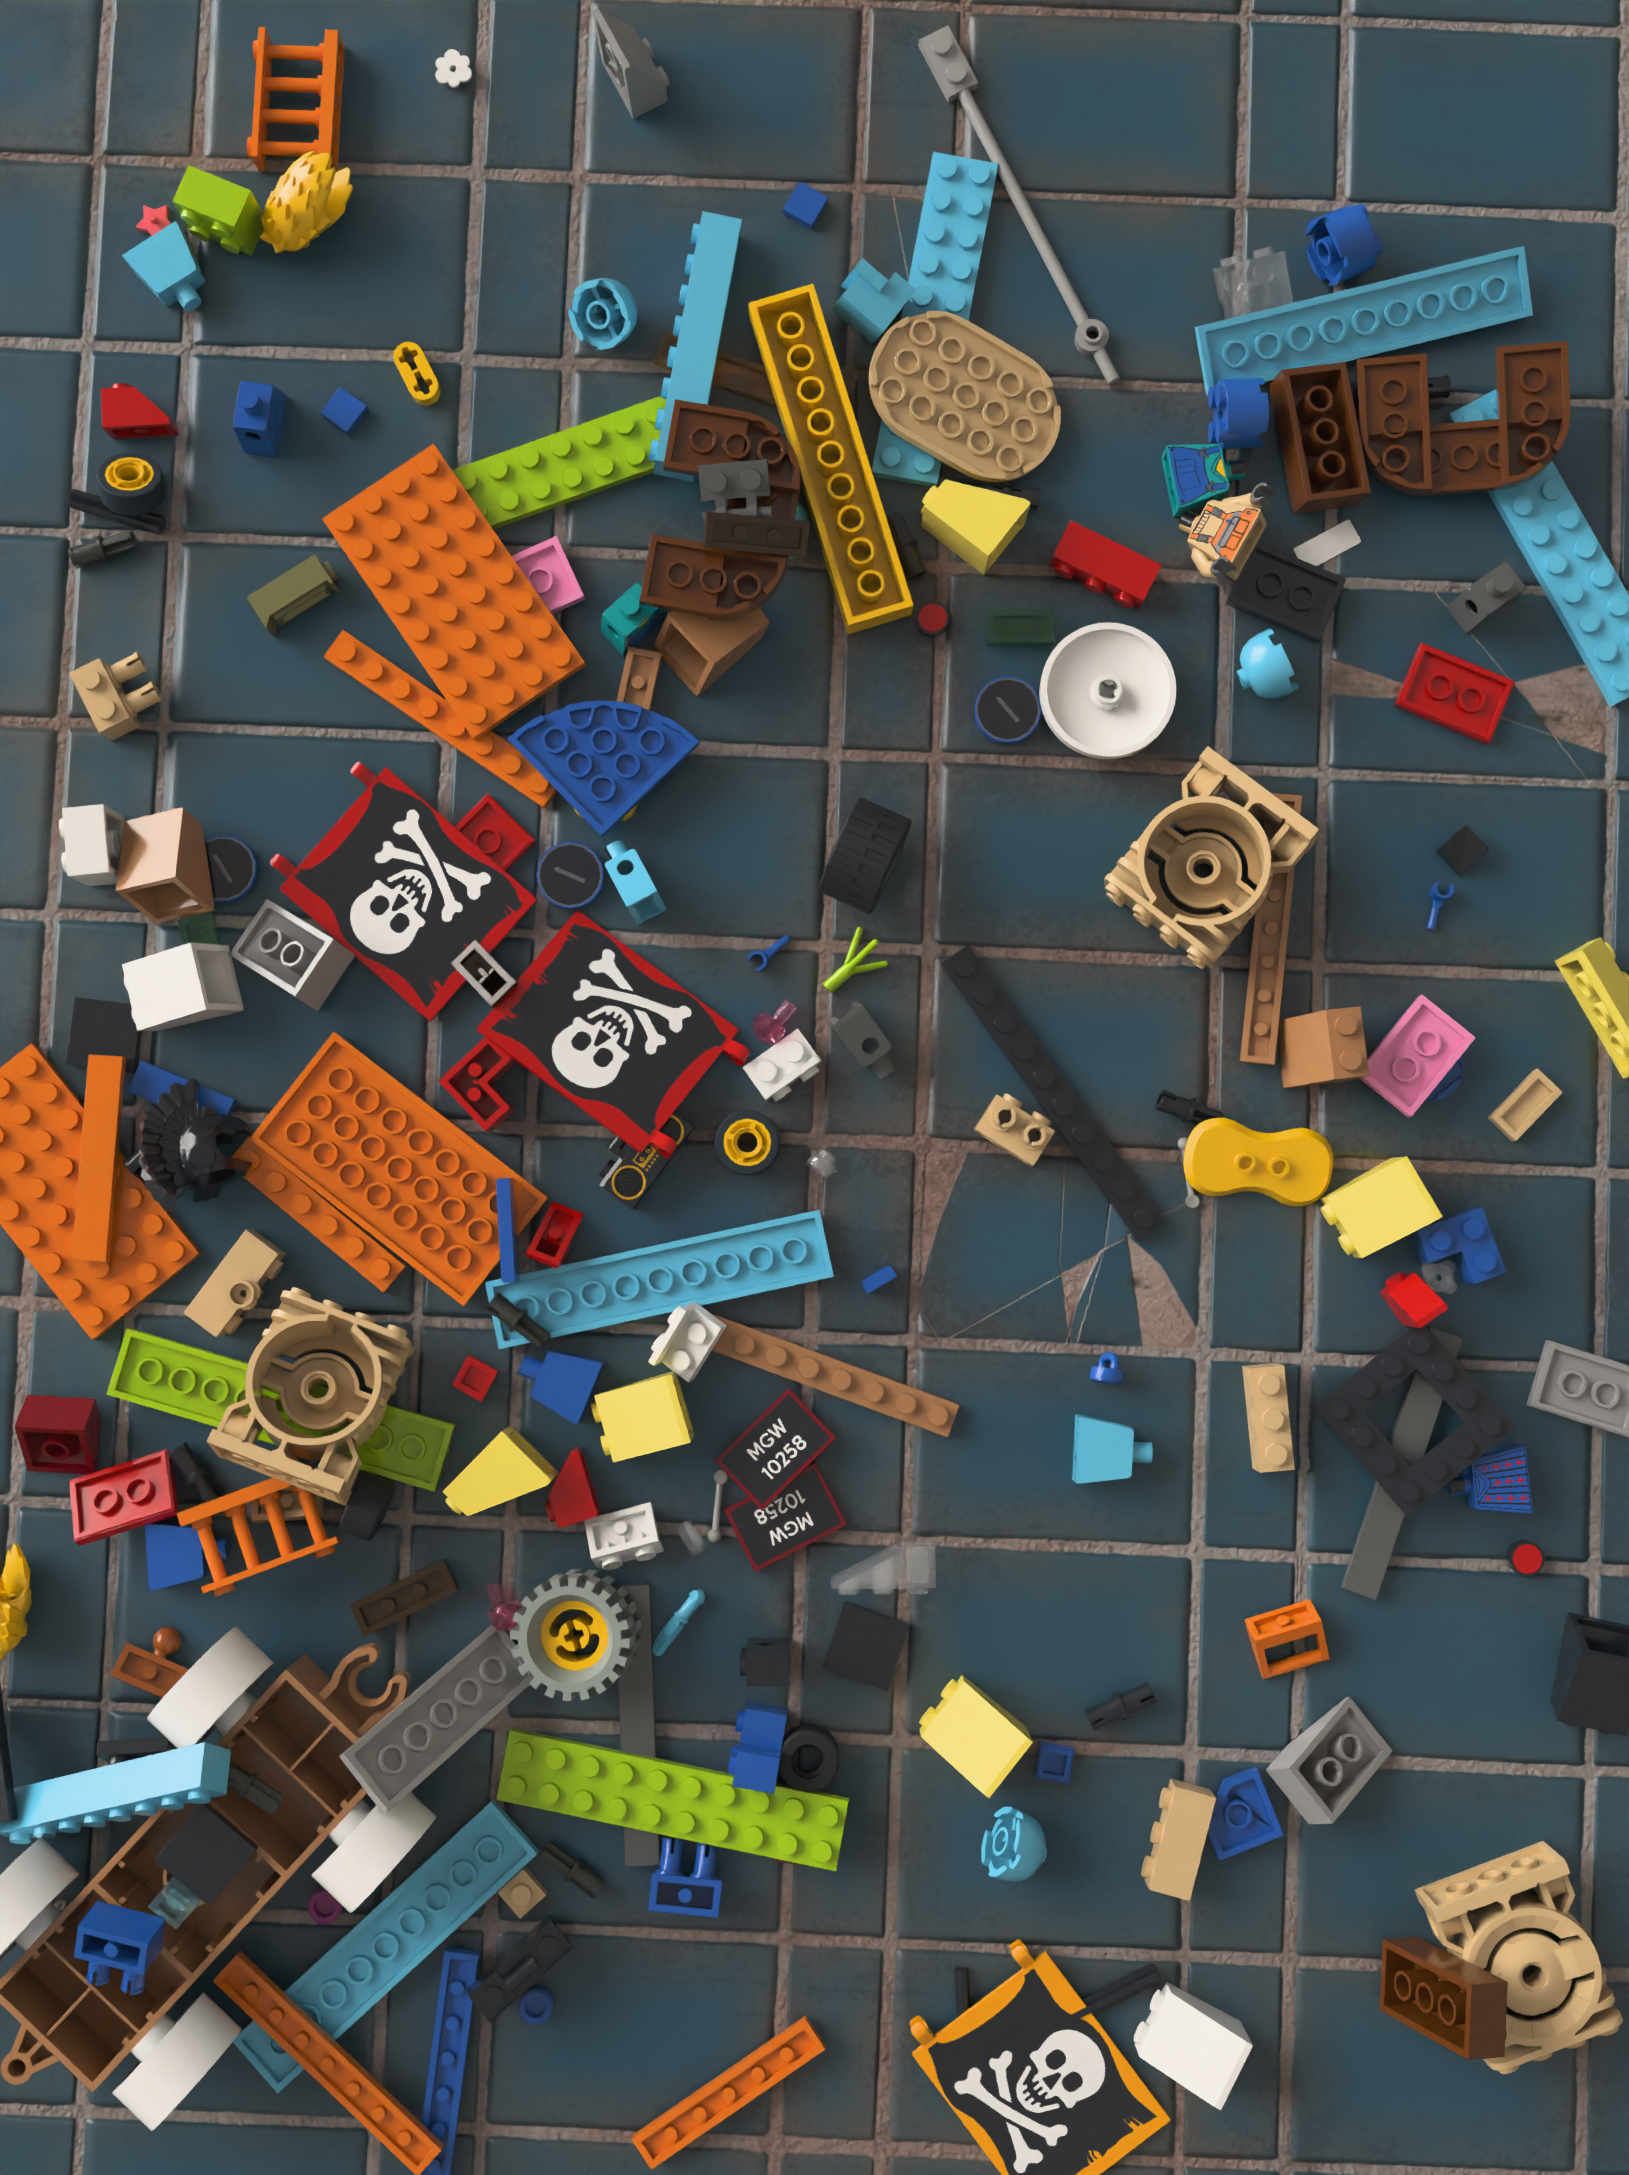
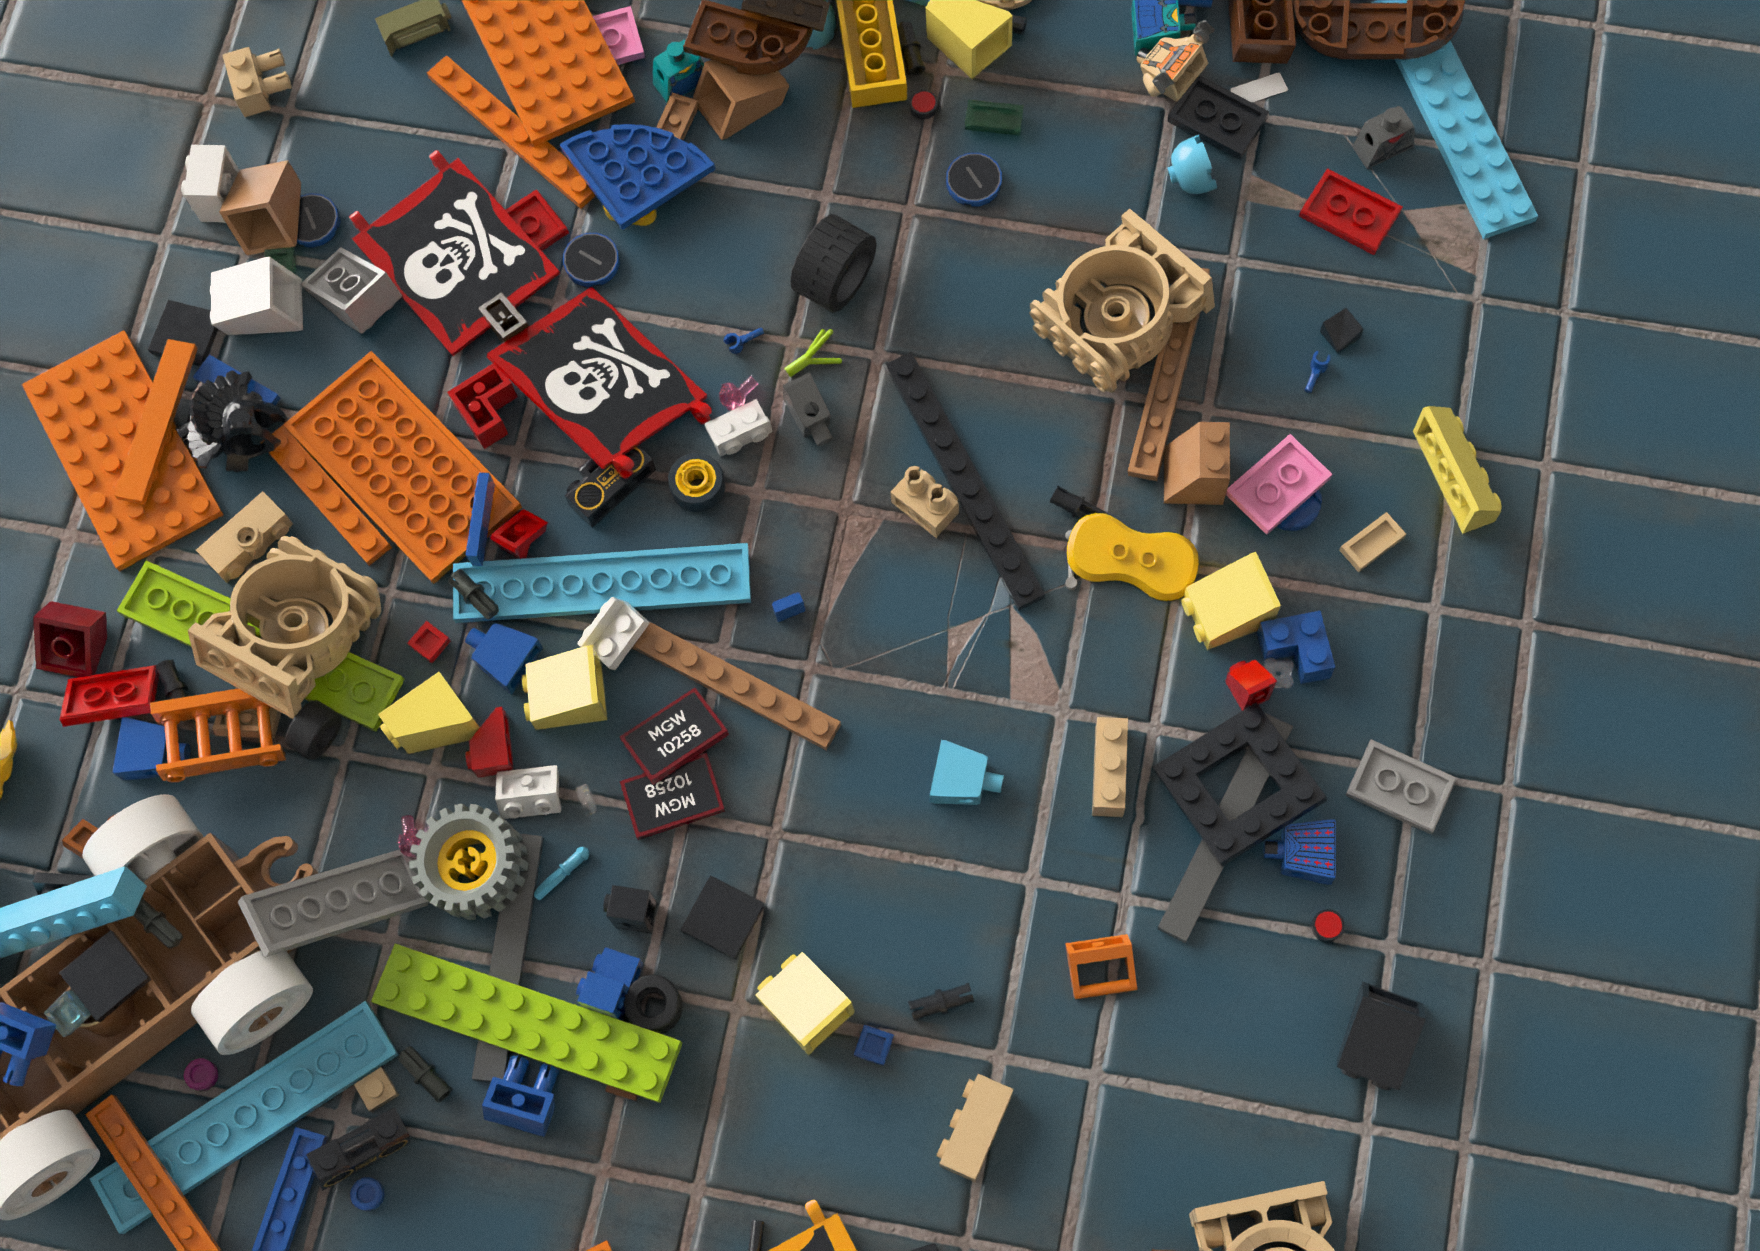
camera: 10 degrees right, 15 degrees down
(404, 1597) = (329, 815): dark brown plate -> none
(633, 882) = (638, 259): medium azure torso -> none
(720, 1477) = (622, 756): light grey hinge -> none
(822, 1163) = (757, 508): clear plate -> none
(896, 1567) = (762, 849): clear slope -> none
(1014, 1846) = (825, 1108): medium azure cylinder -> none
(1104, 565) = (1070, 79): red brick -> none
(1107, 690) = (1057, 170): white dish -> none
(1107, 1375) = (974, 711): blue tile -> none
(1242, 1815) = (1036, 1116): blue plate -> none
(1329, 1763) = (1124, 1078): light grey slope -> none

